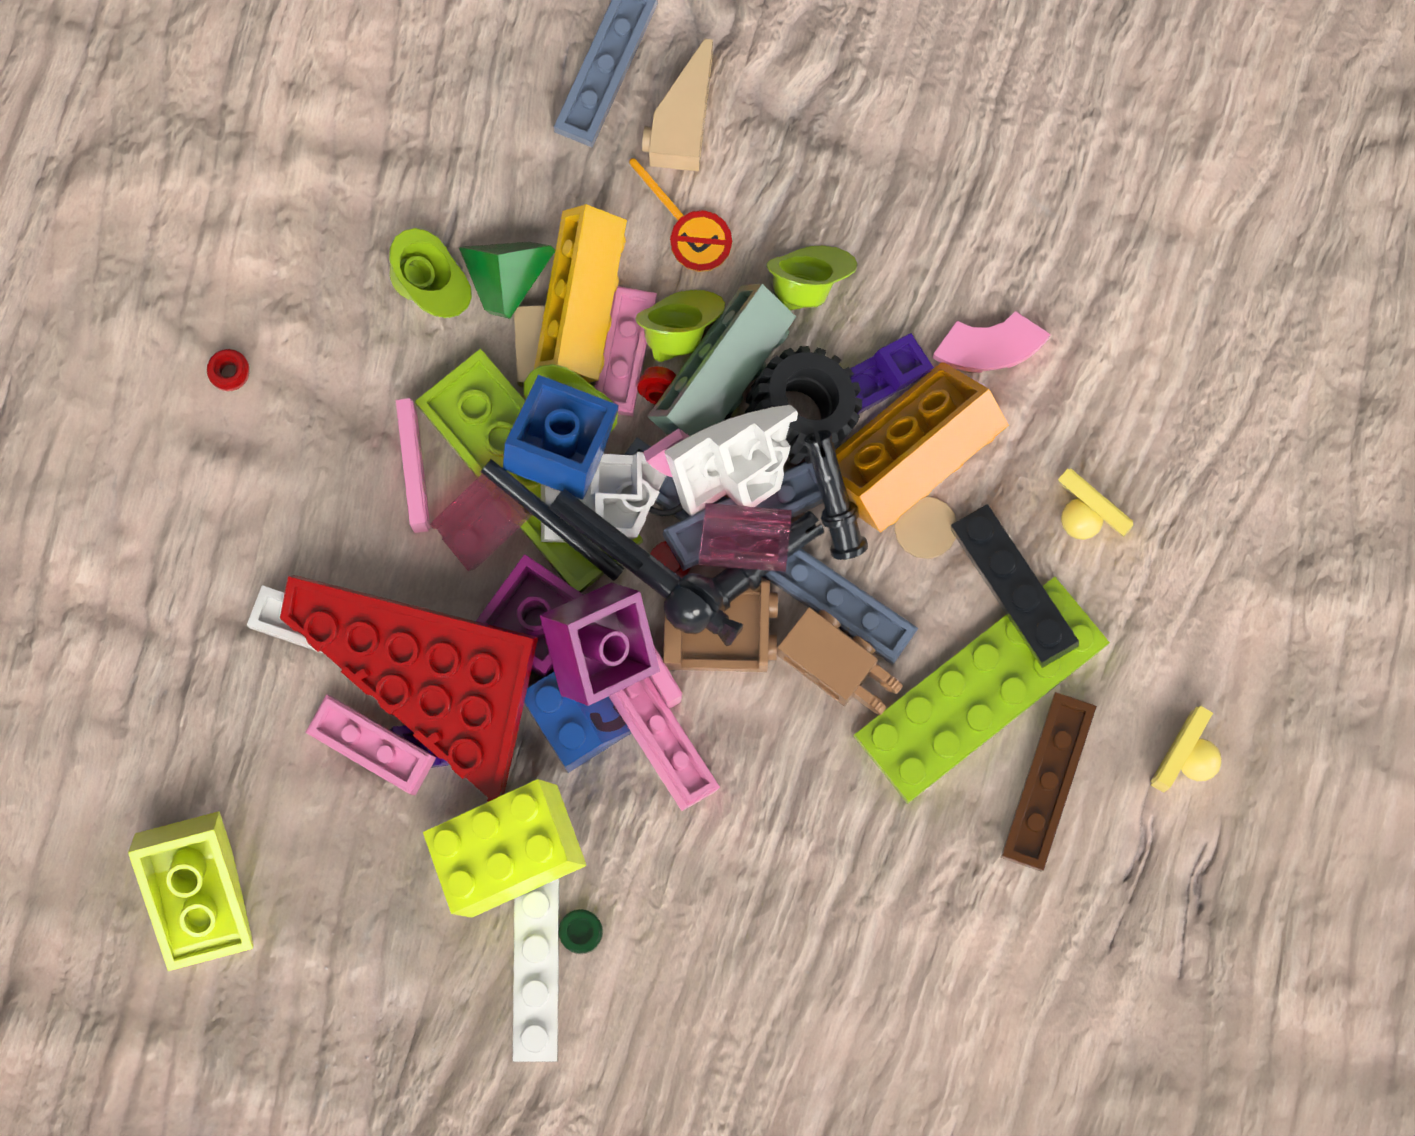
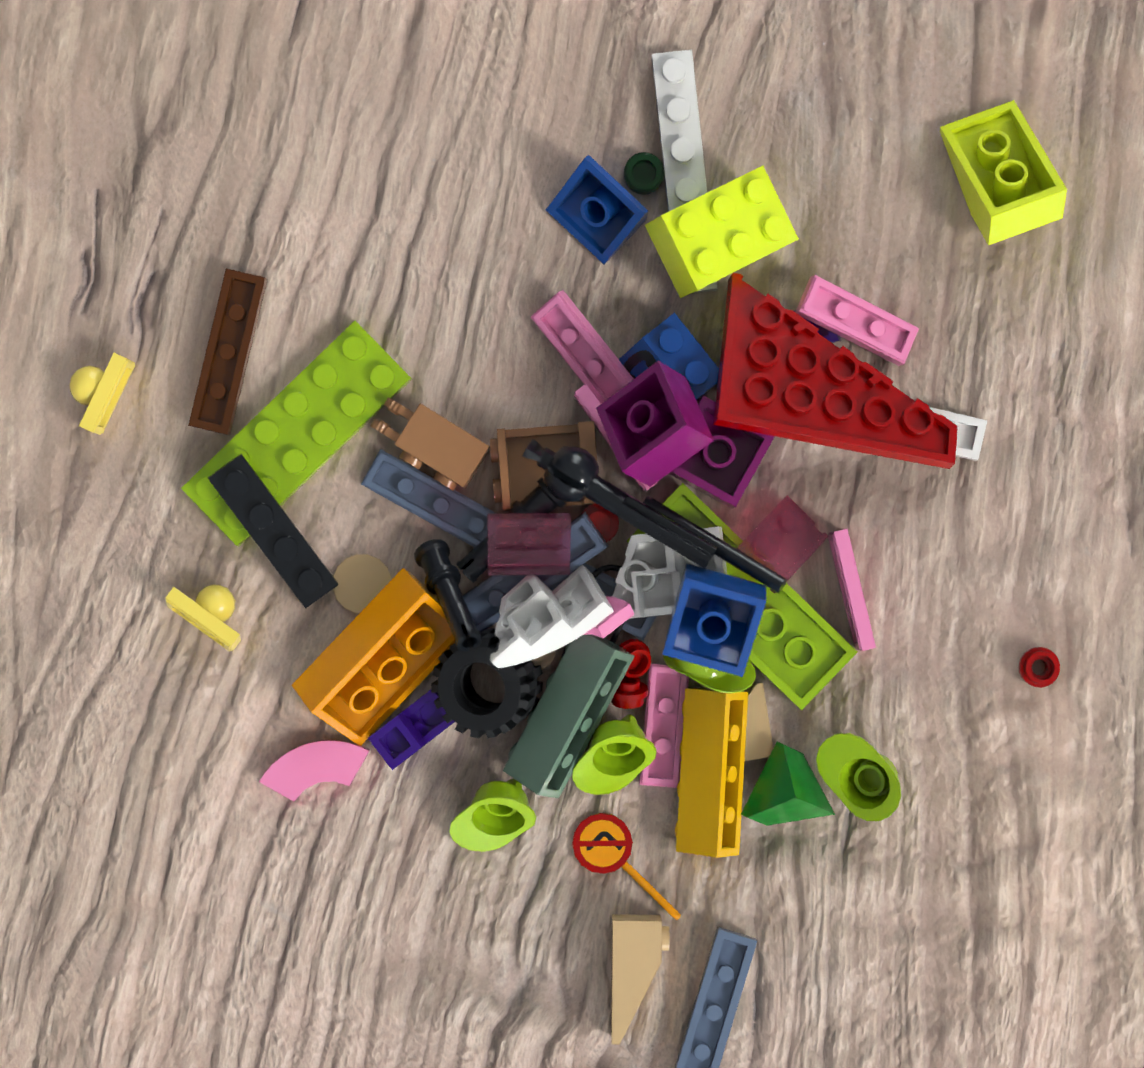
camera: 170 degrees right, 10 degrees up
(636, 891) = (597, 210): none -> blue slope
(641, 424) = (642, 658): none -> red plate

